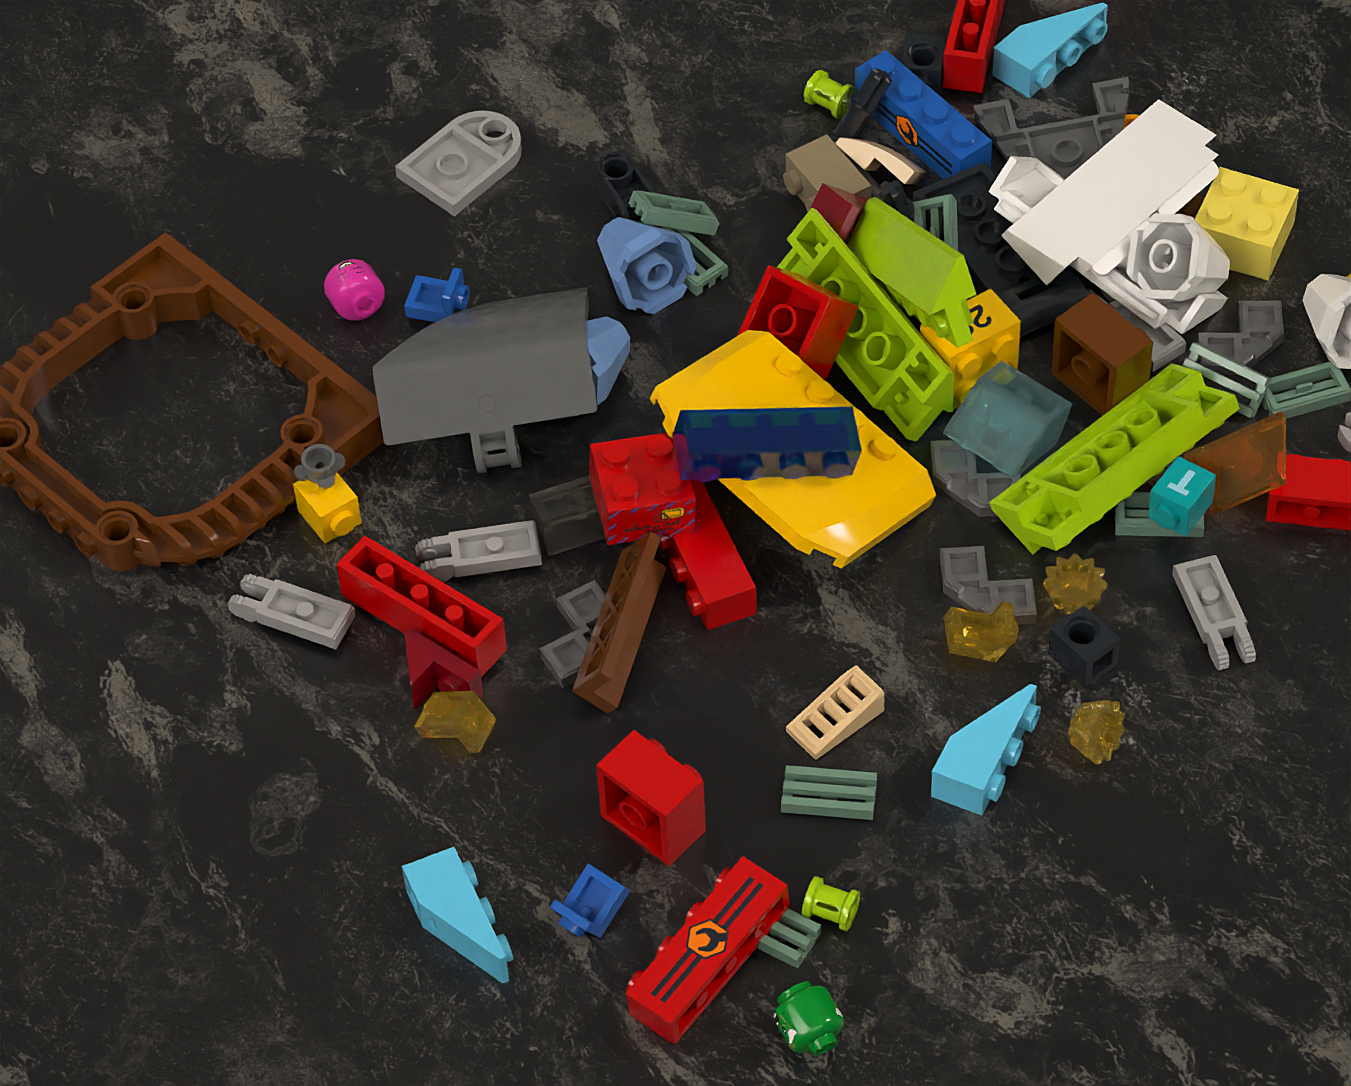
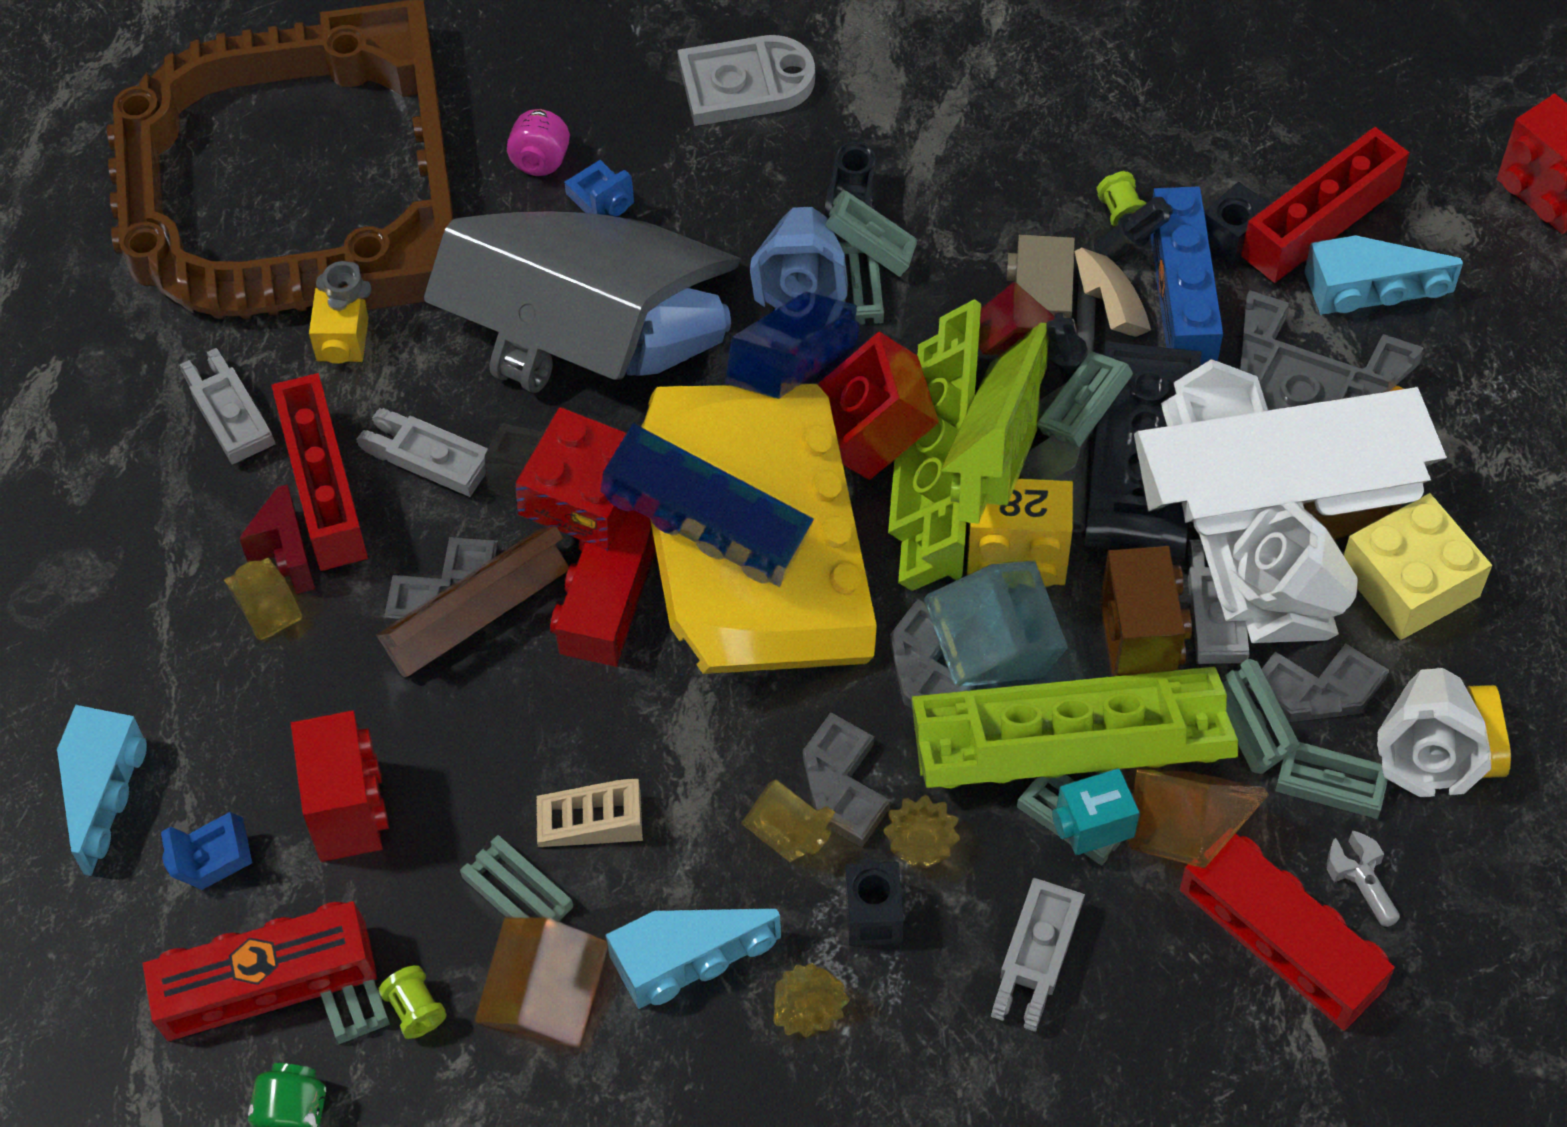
camera: 35 degrees right, 5 degrees up
(706, 313) = (791, 344): none -> clear blue brick
(904, 833) = (542, 980): none -> clear orange slope

